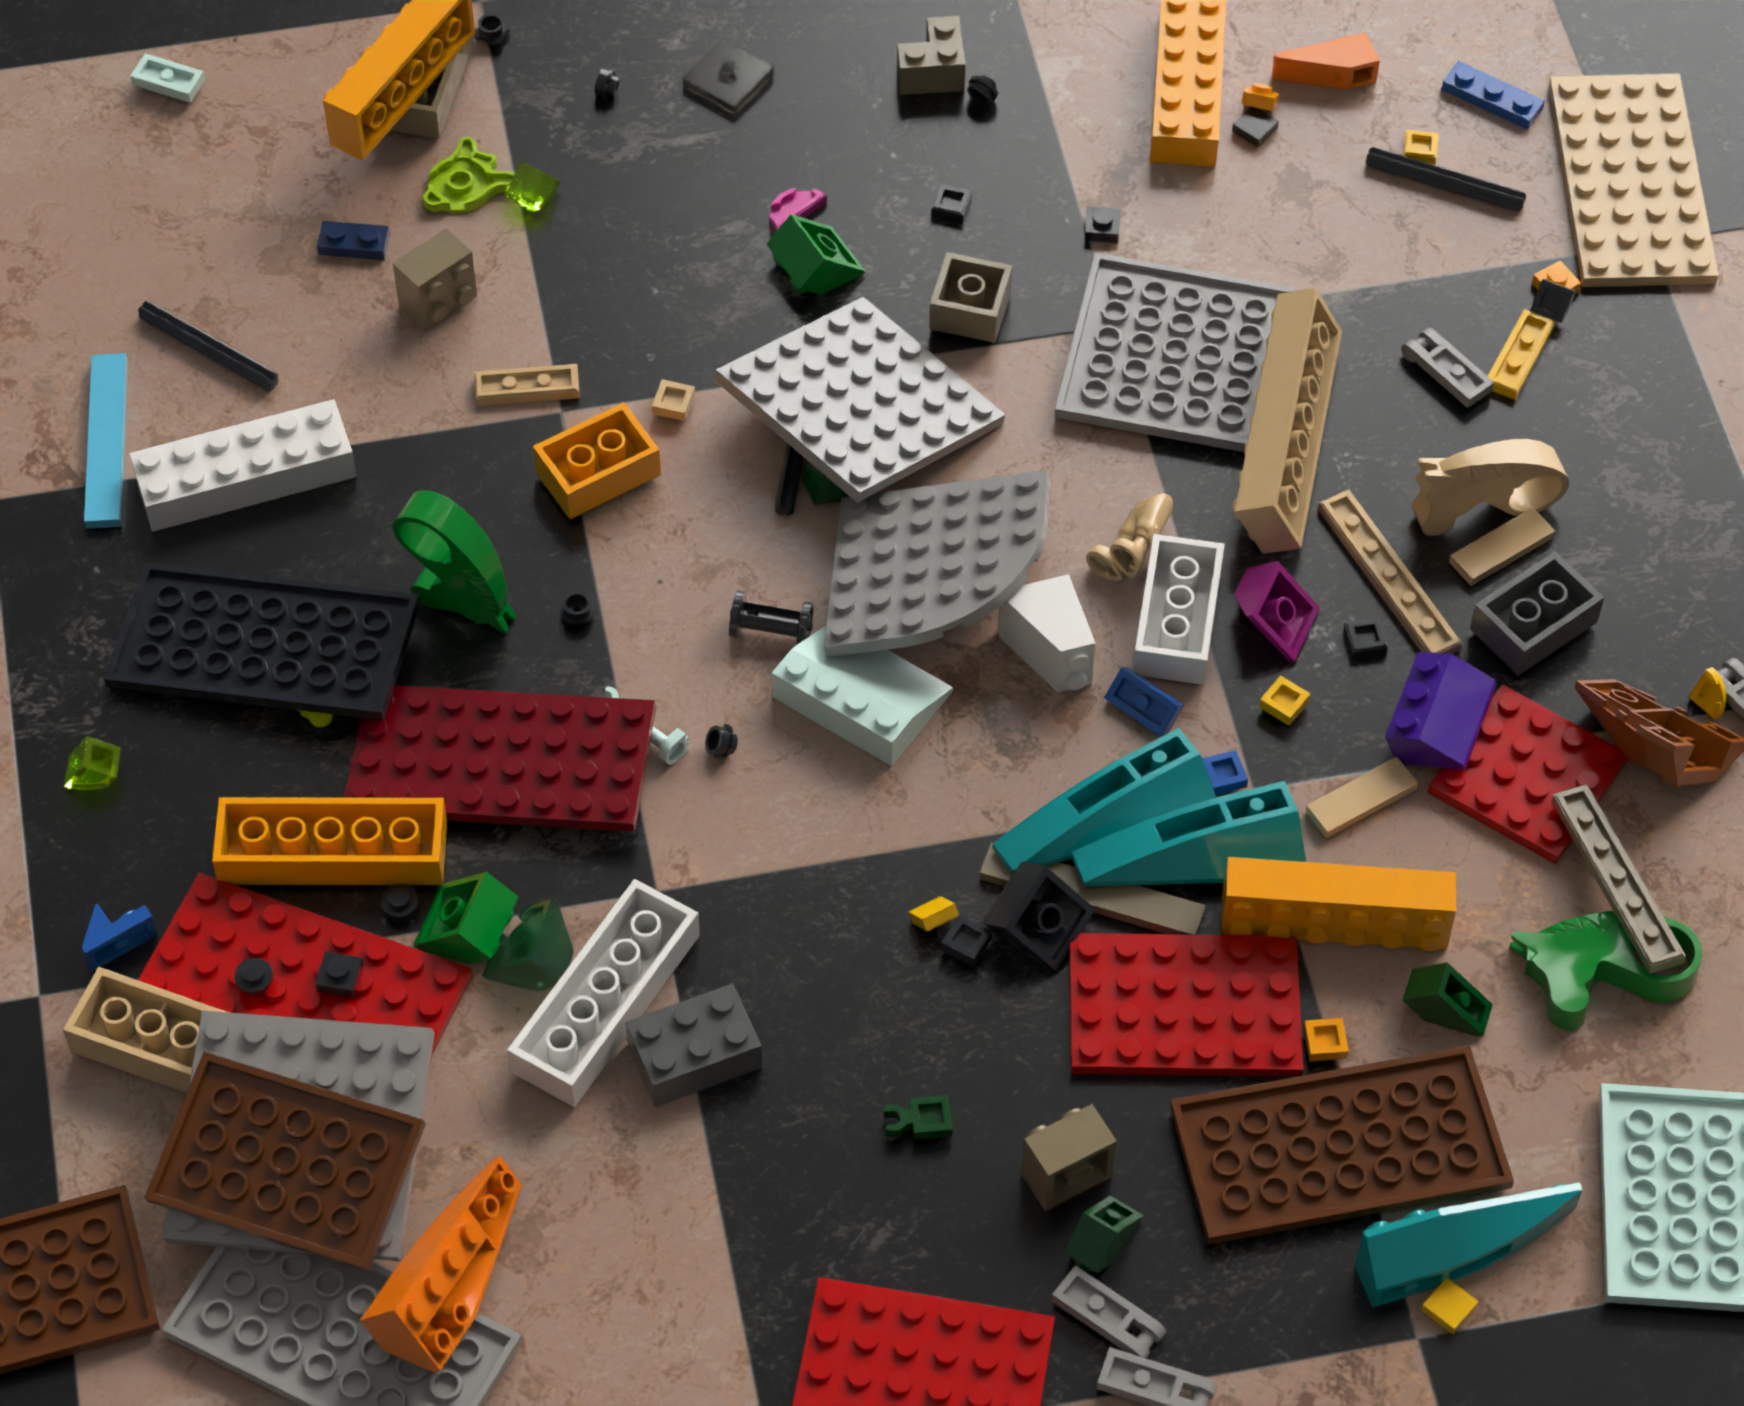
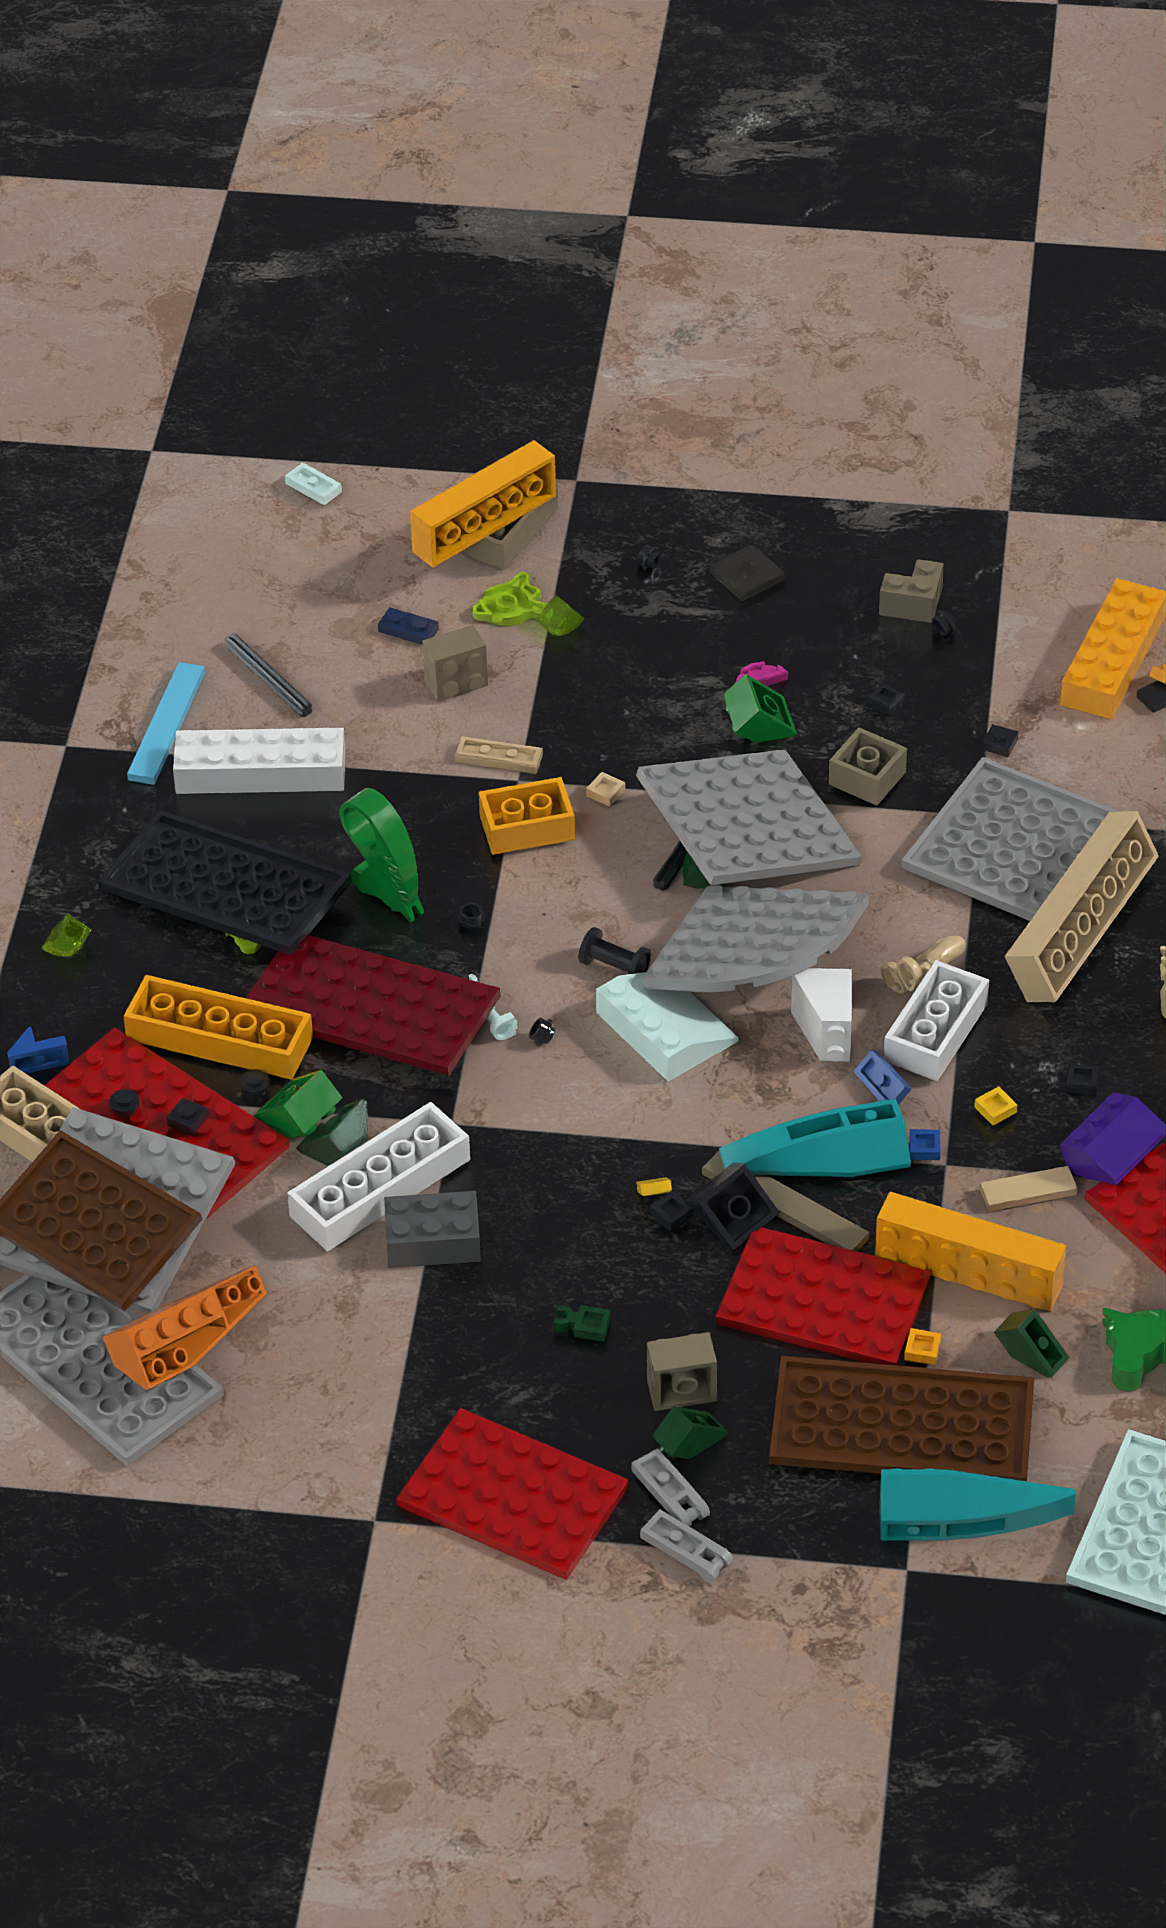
camera: 20 degrees right, 10 degrees down
(491, 29) = (575, 500): black plate -> none
(1196, 841) = (864, 1180): teal wedge -> none
(1277, 606) = (1018, 1039): magenta slope -> none
(1388, 574) = (1121, 1037): tan tile -> none
(1449, 1306) = (940, 1553): yellow tile -> none

